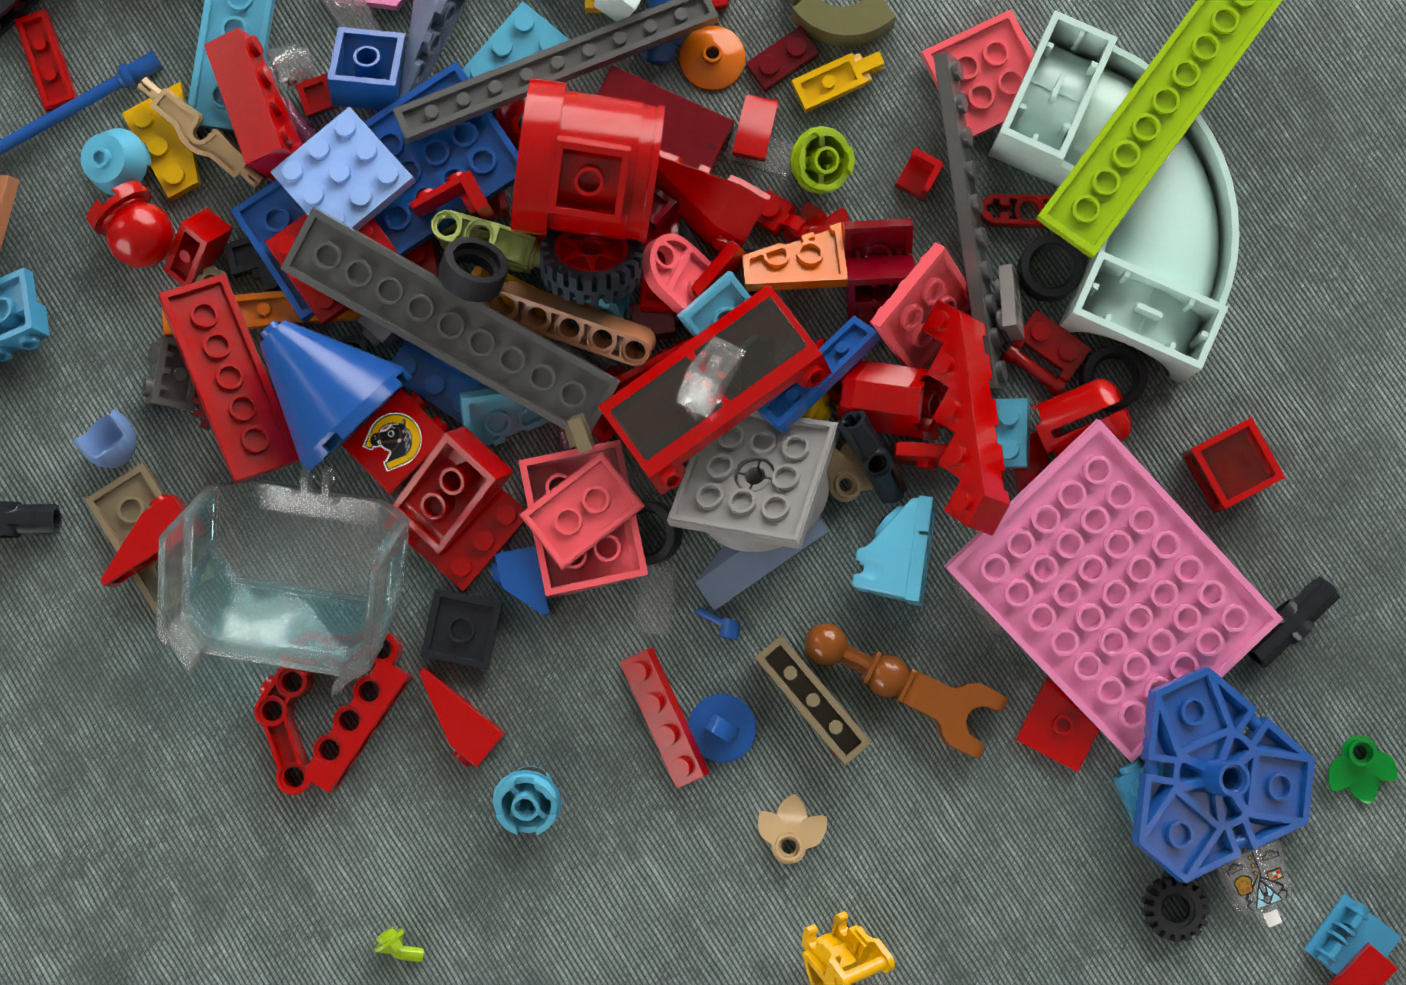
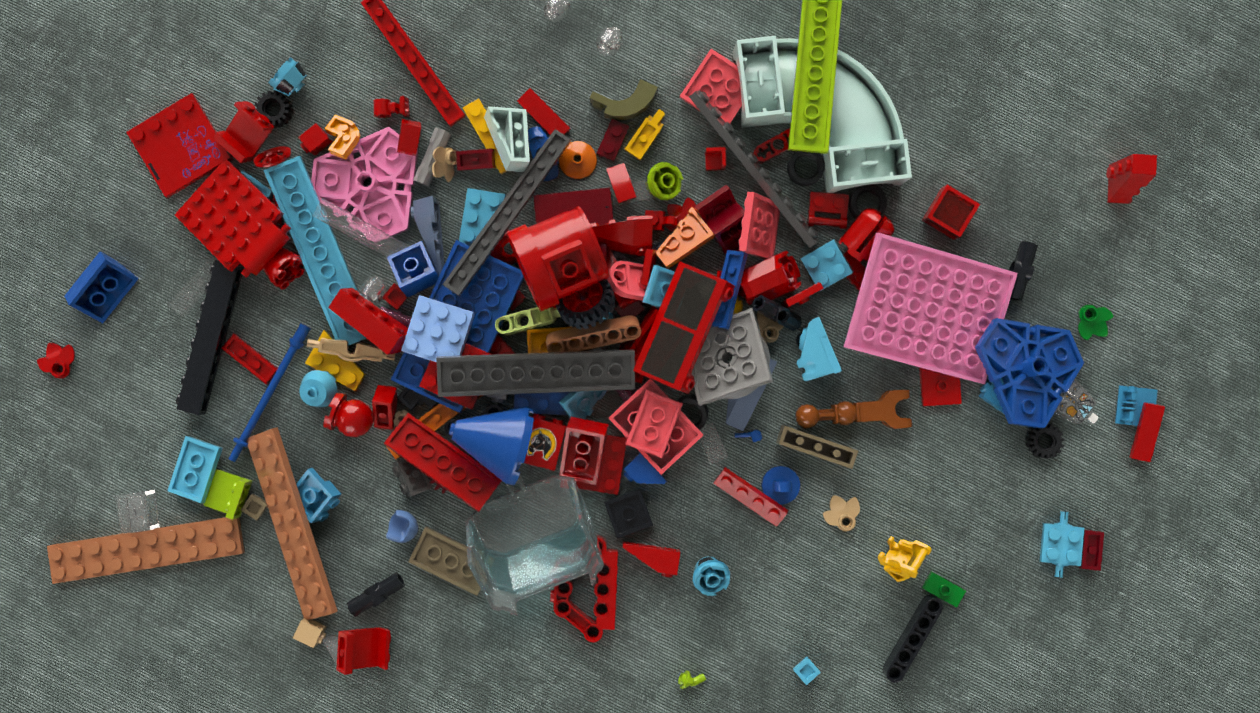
camera: 30 degrees left, 5 degrees up
(142, 542) = (453, 561): red slope -> none
(456, 185) = (508, 304): red bracket -> none
(465, 285) = (532, 351): black tyre -> none
(579, 434) = (631, 388): dark tan plate -> none
(709, 376) = (680, 324): clear slope -> none
(971, 415) = (814, 267): red brick -> none
(1011, 313) = (792, 190): light grey plate -> none

